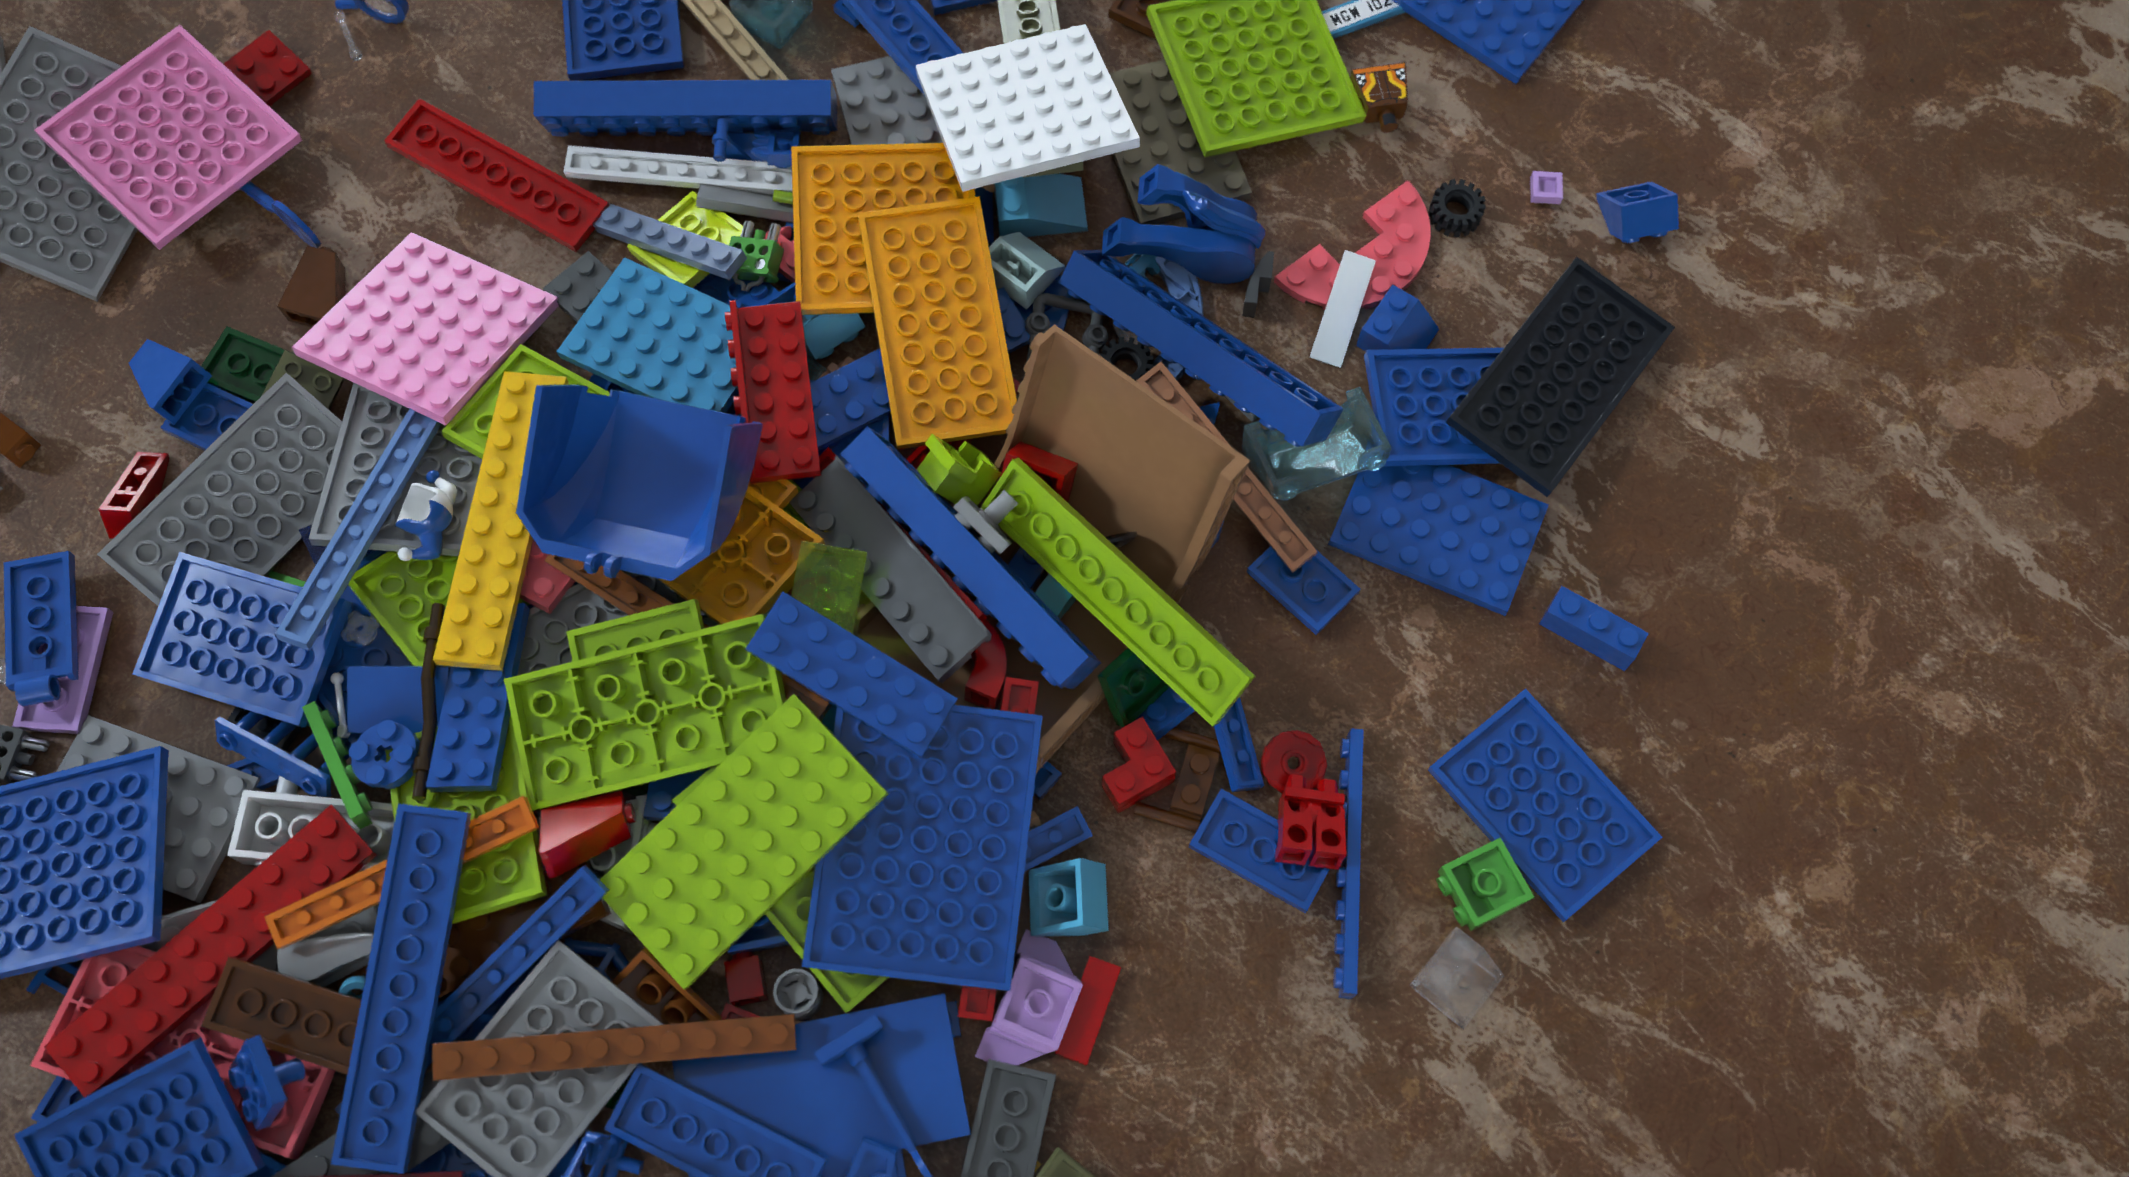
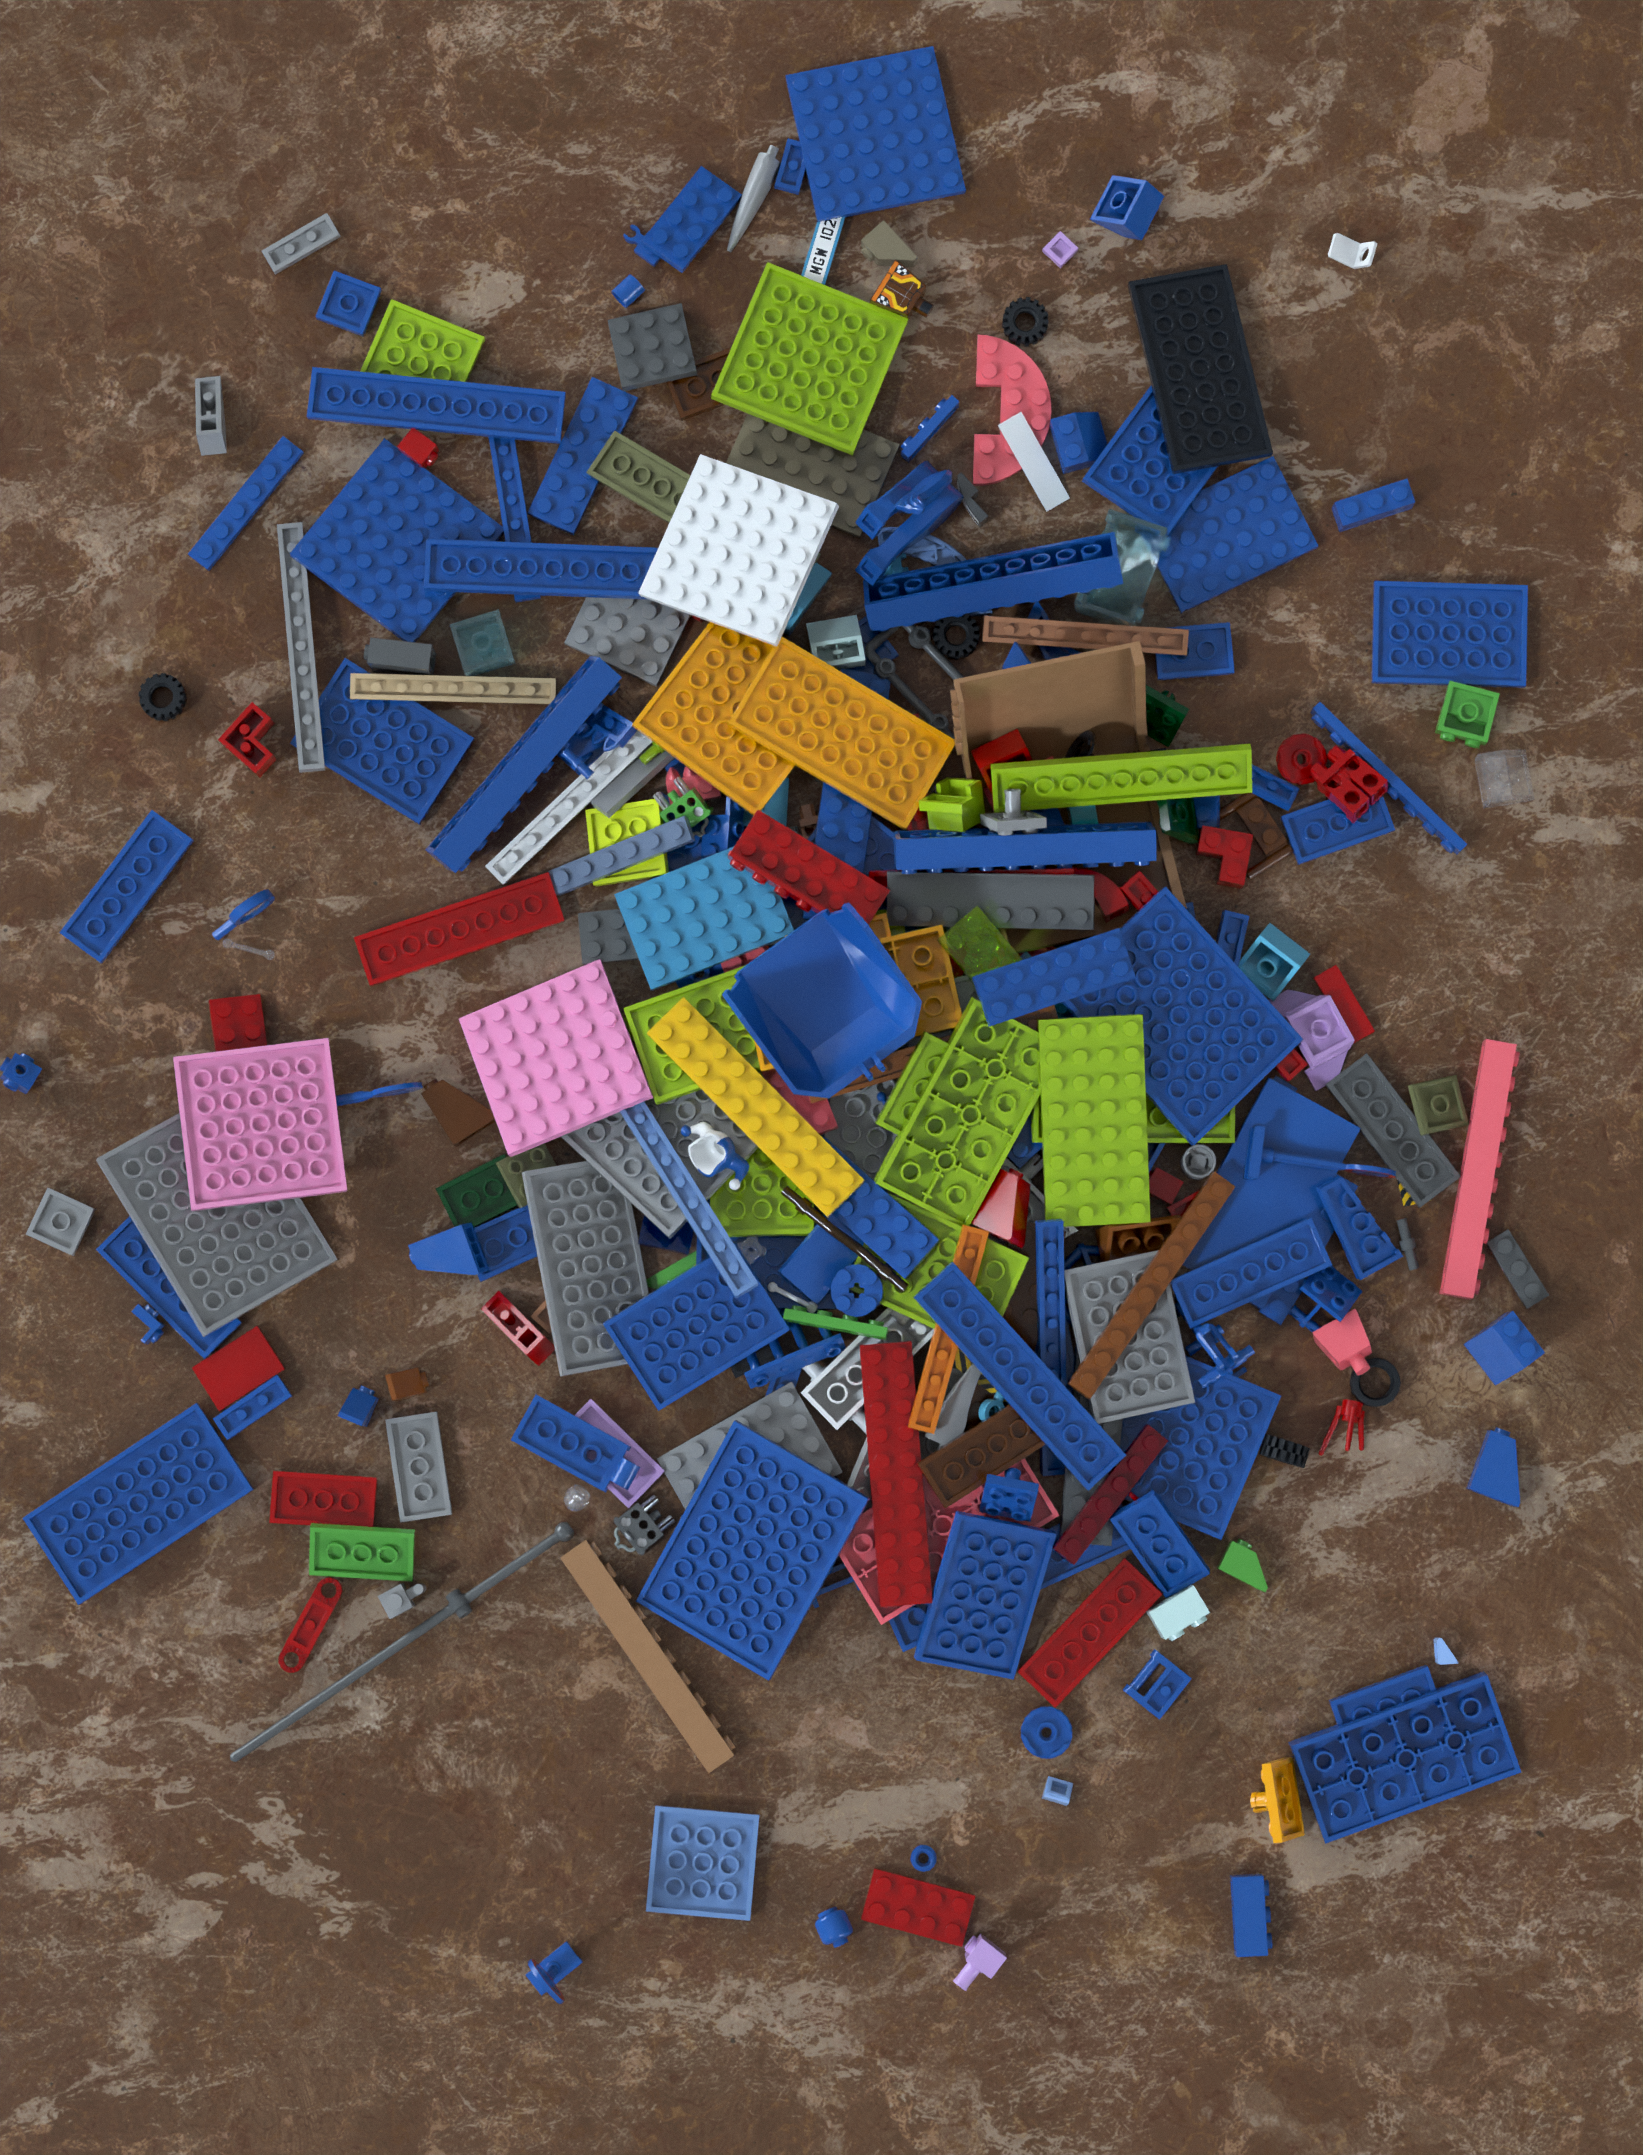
camera: 45 degrees left, 15 degrees up
(1214, 591) = (1164, 715): none -> dark green plate
(1291, 203) = (928, 428): none -> blue plate
(1411, 47) = (885, 246): none -> dark tan slope
(1792, 420) = (1351, 252): none -> white bracket

